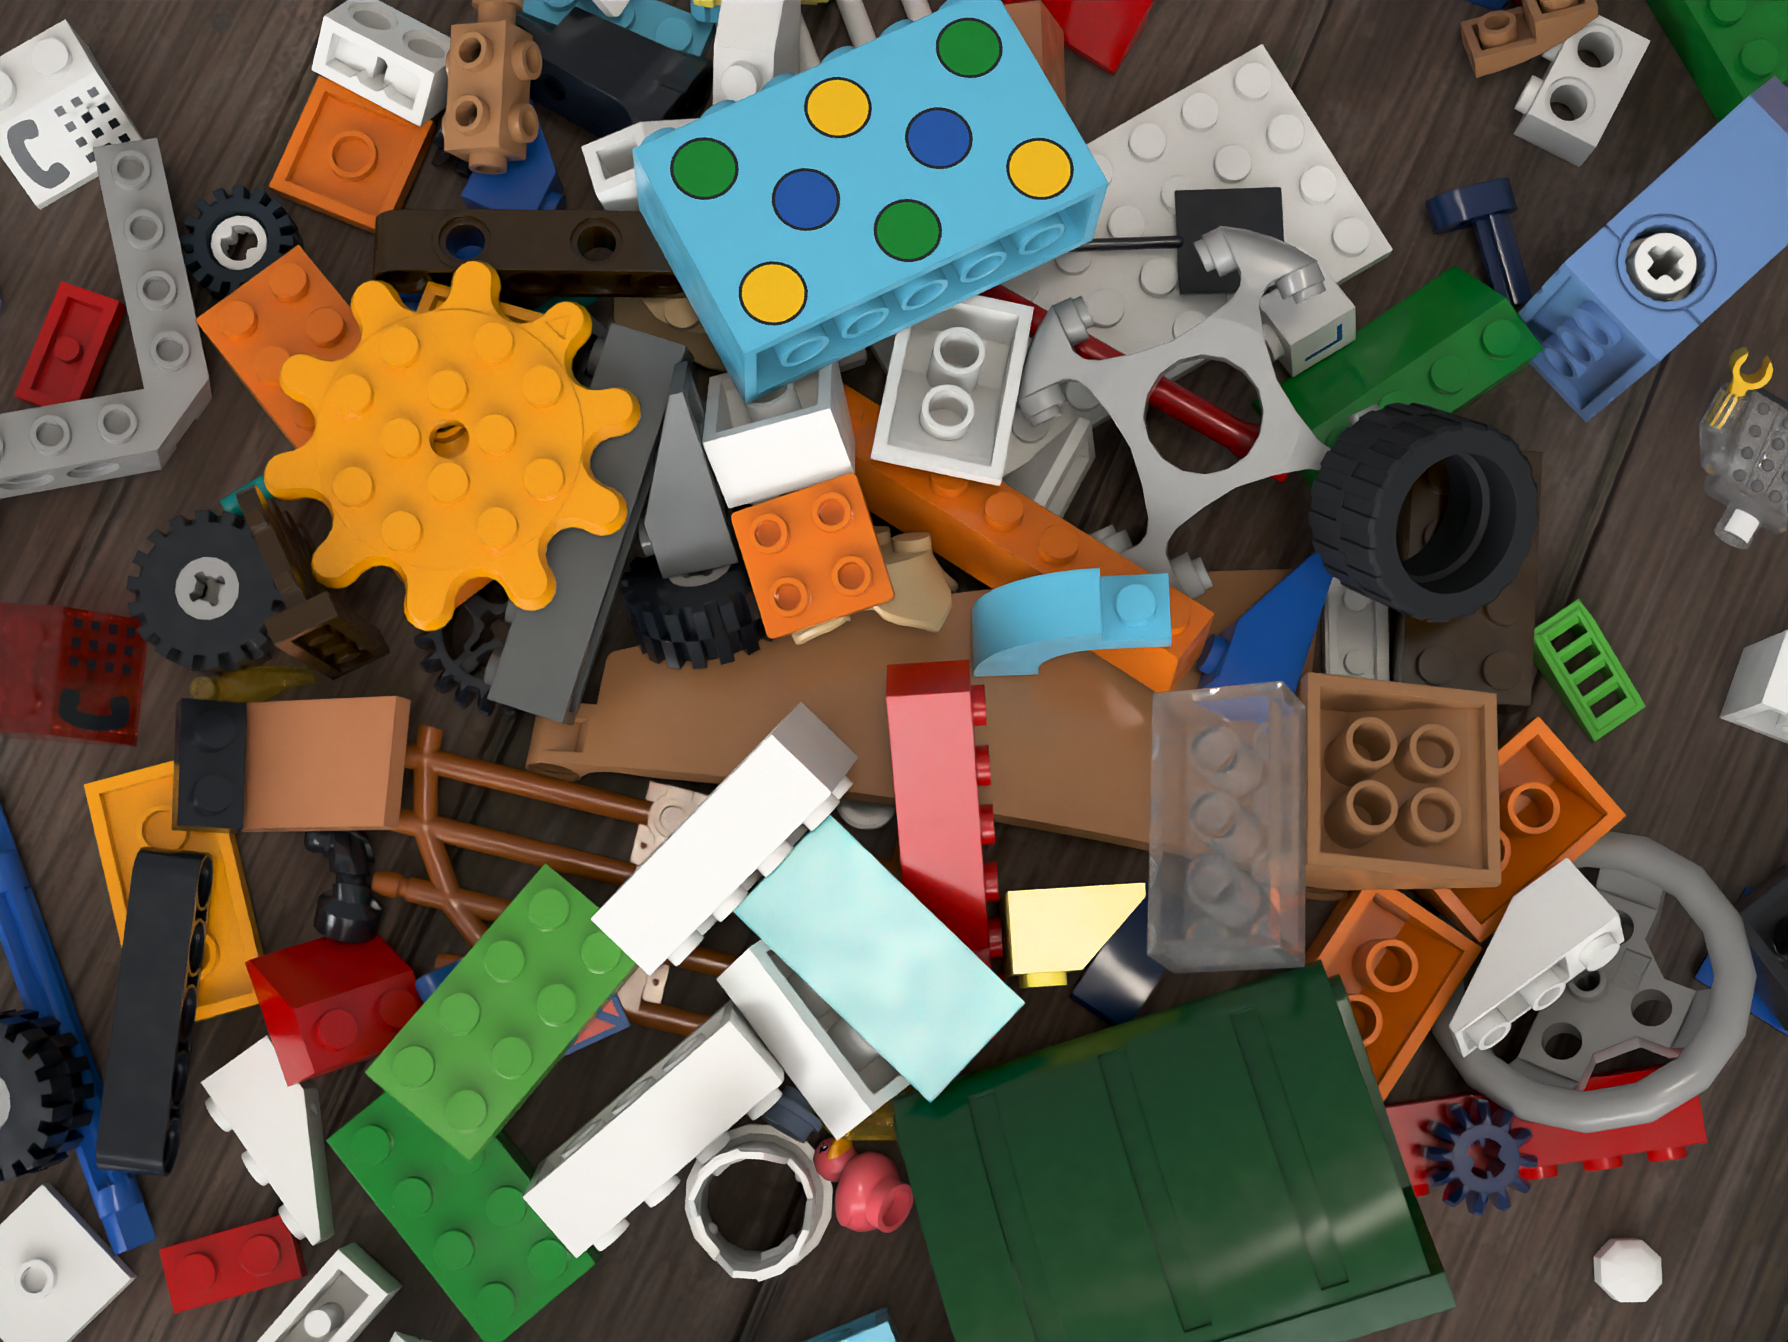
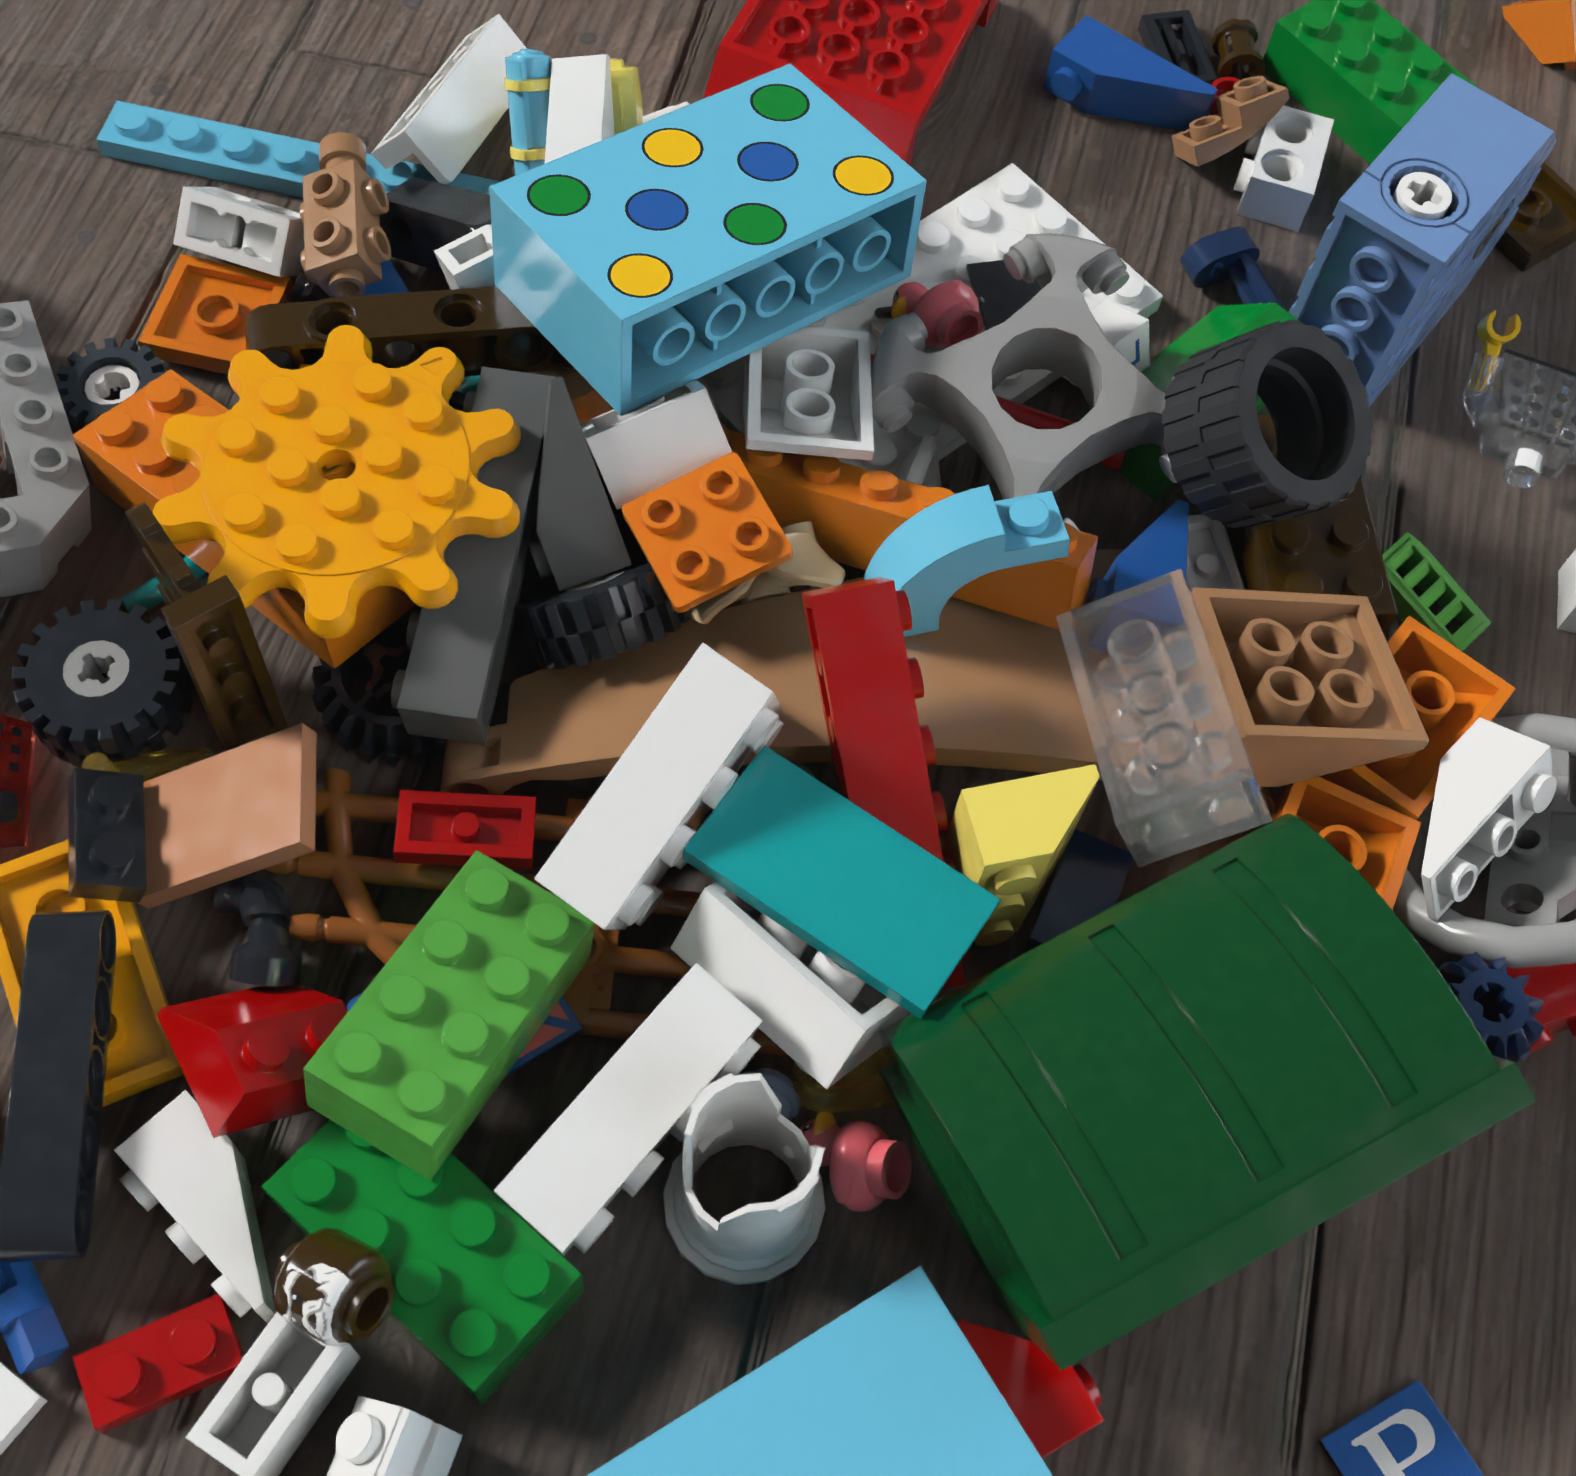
camera: 15 degrees left, 20 degrees down
(378, 1252) = (333, 1287): none -> dark brown head
(543, 816) = (452, 826): none -> red plate
(1127, 271) = (946, 310): none -> coral animal

